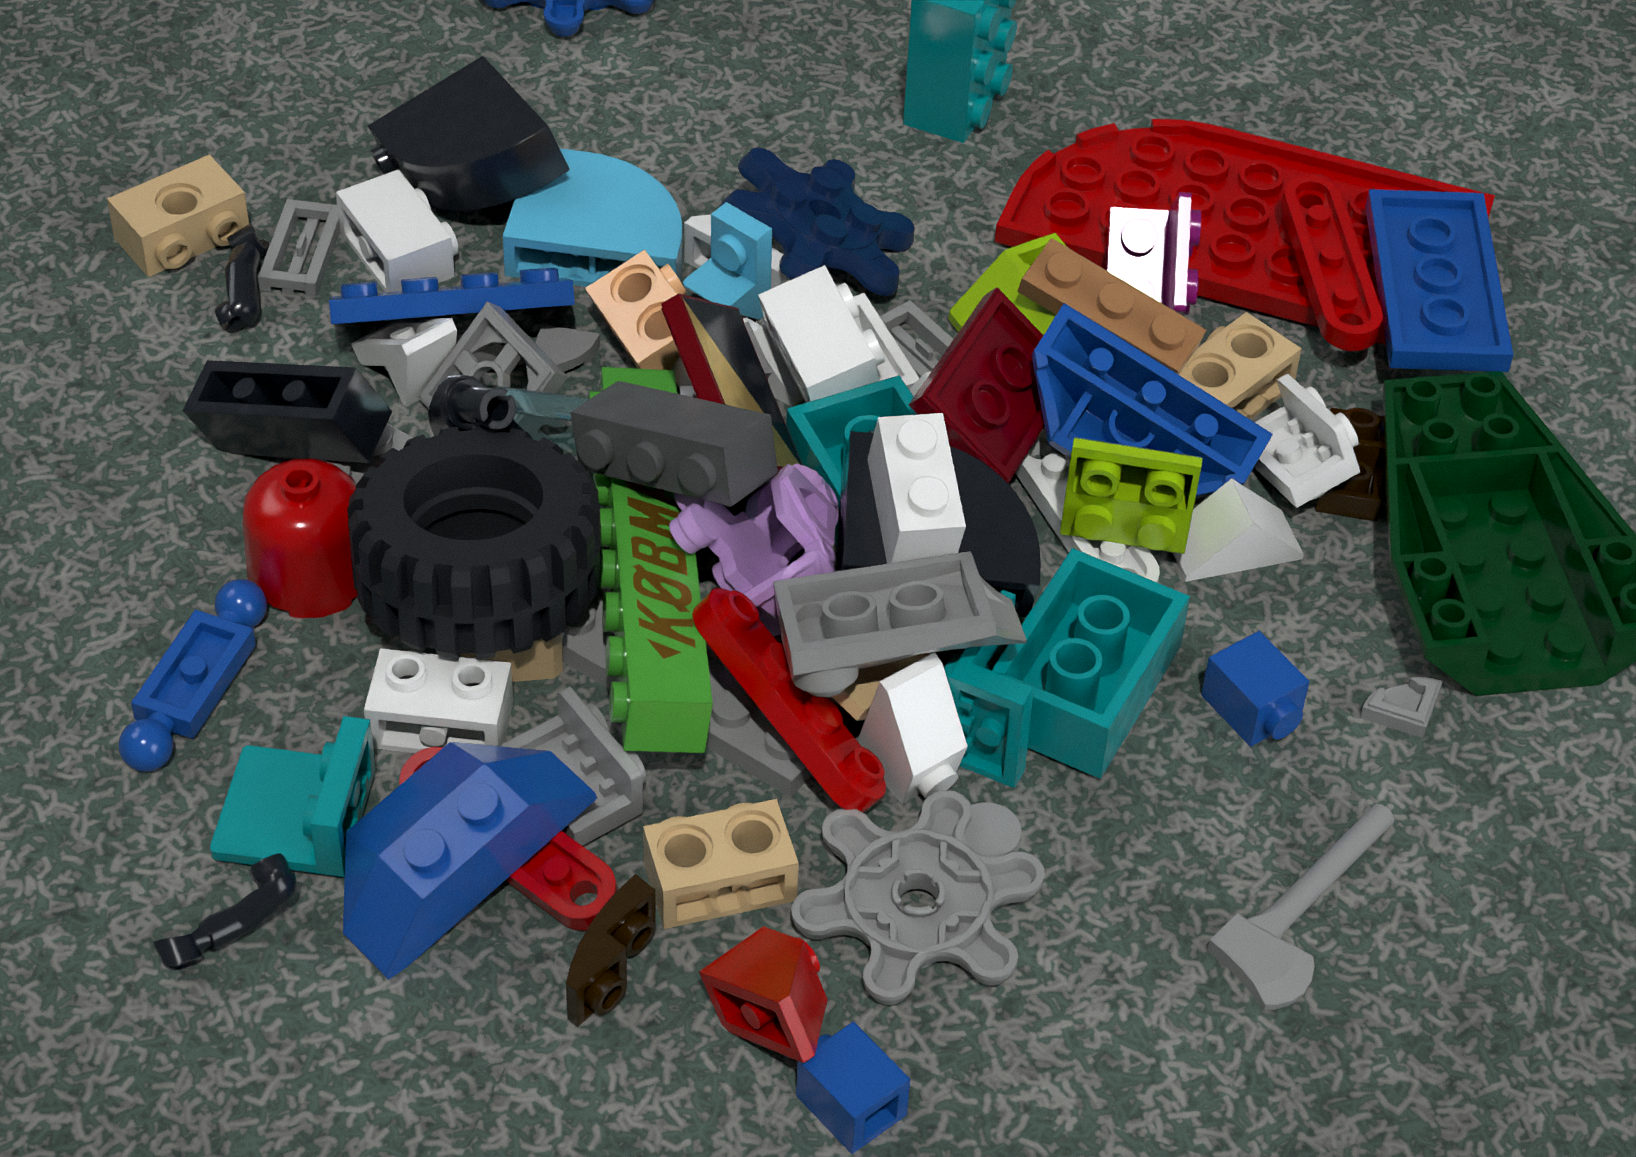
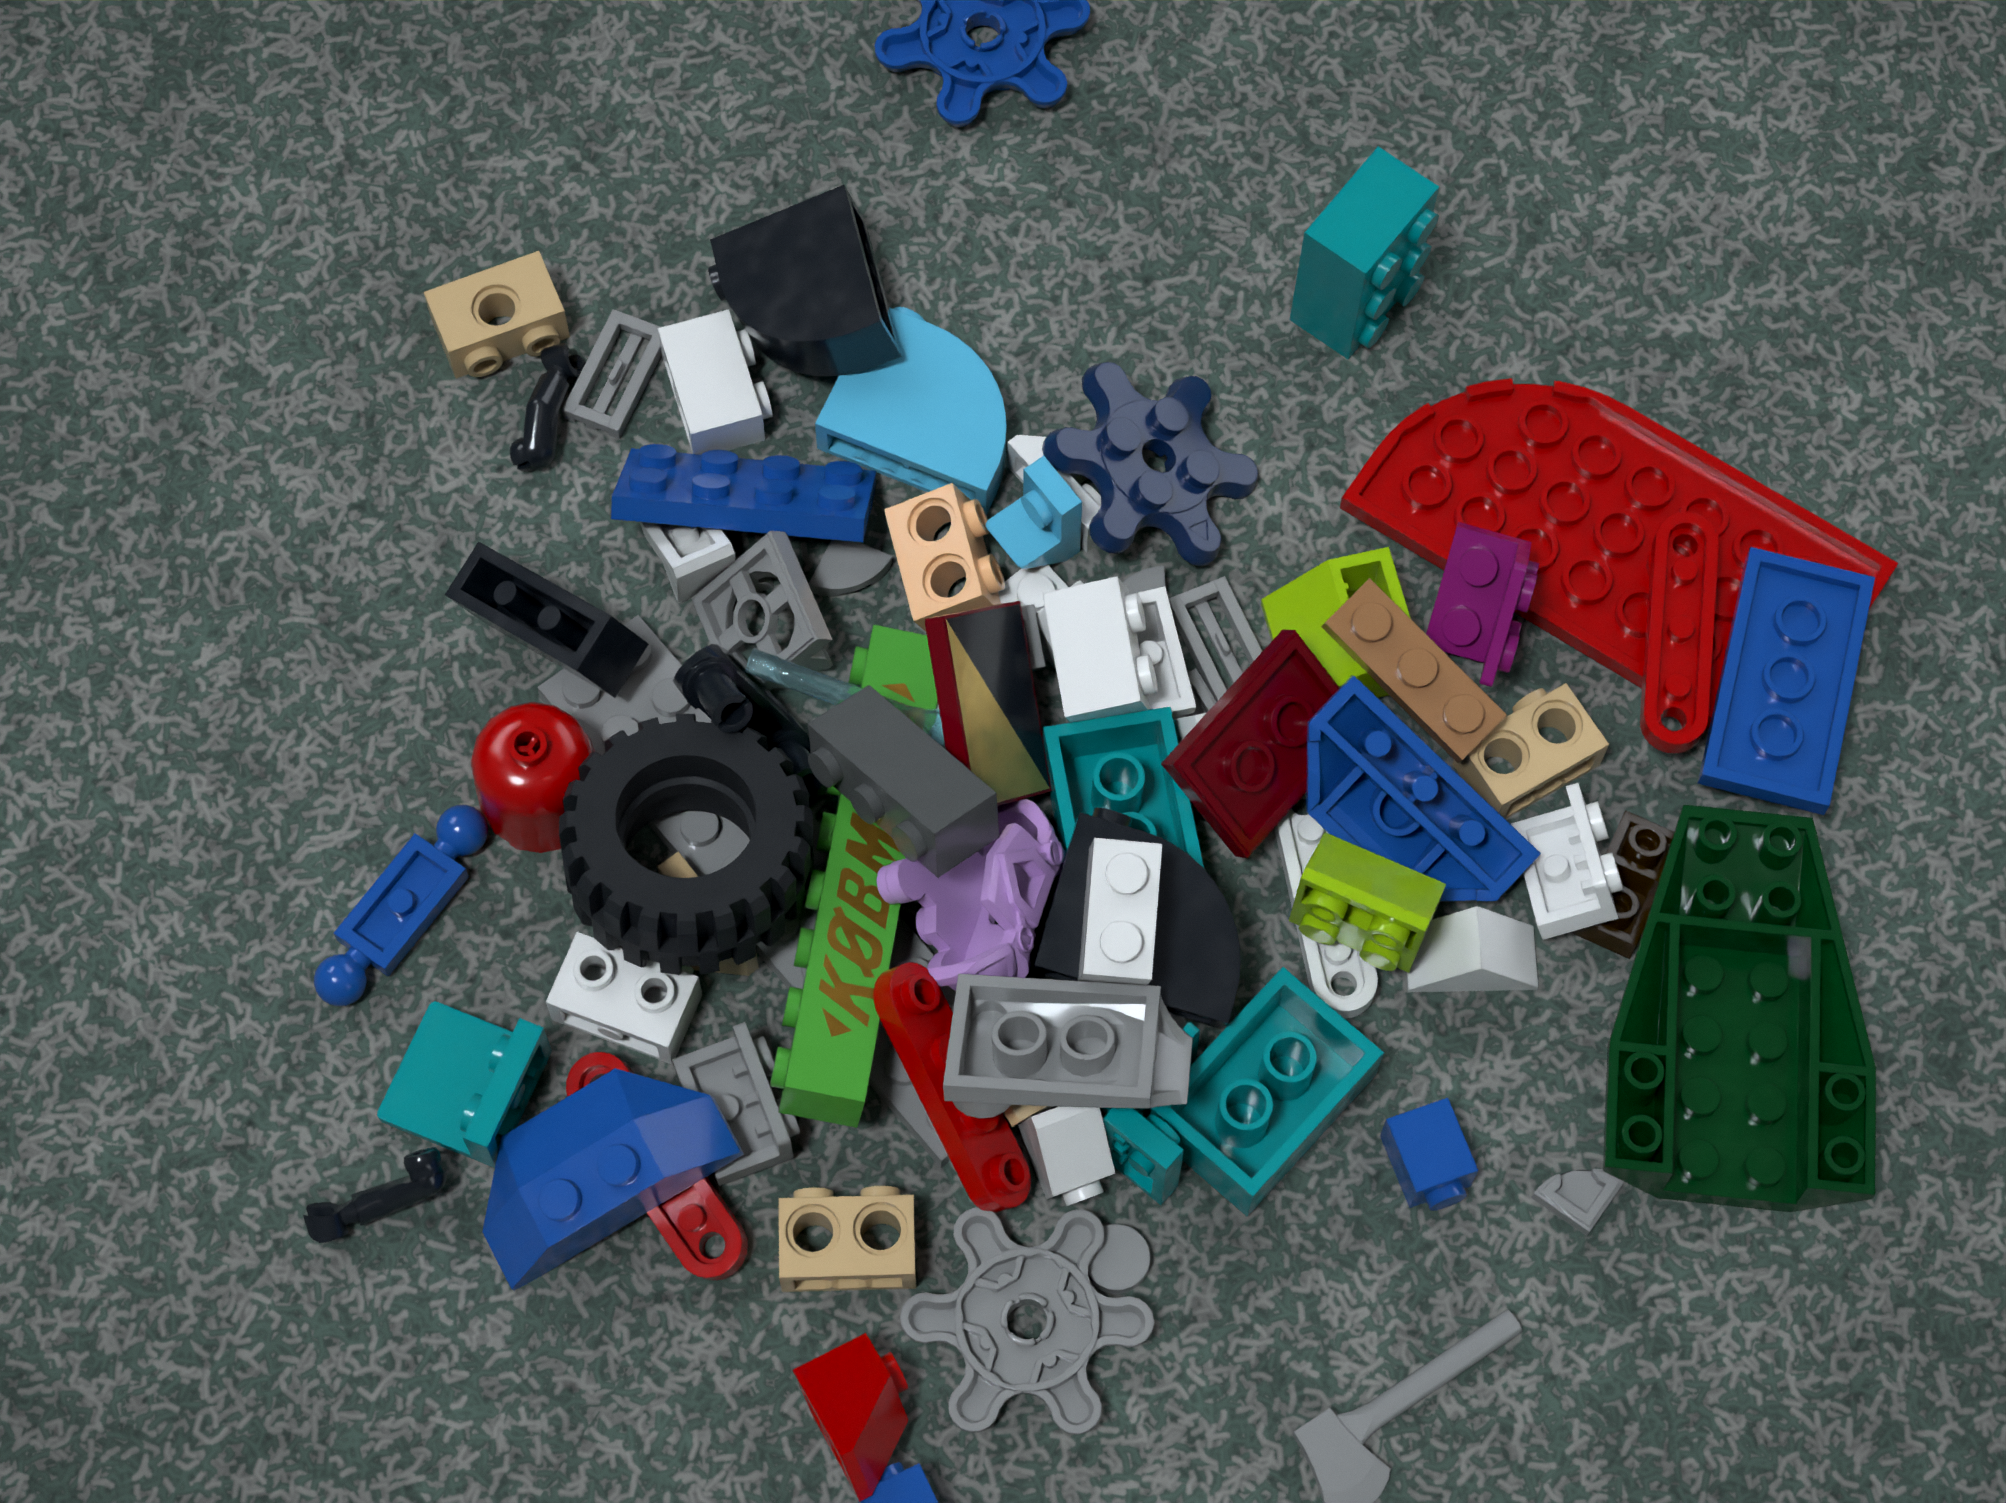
camera: 15 degrees right, 20 degrees up
(600, 963) = (703, 1336): dark brown slope -> none

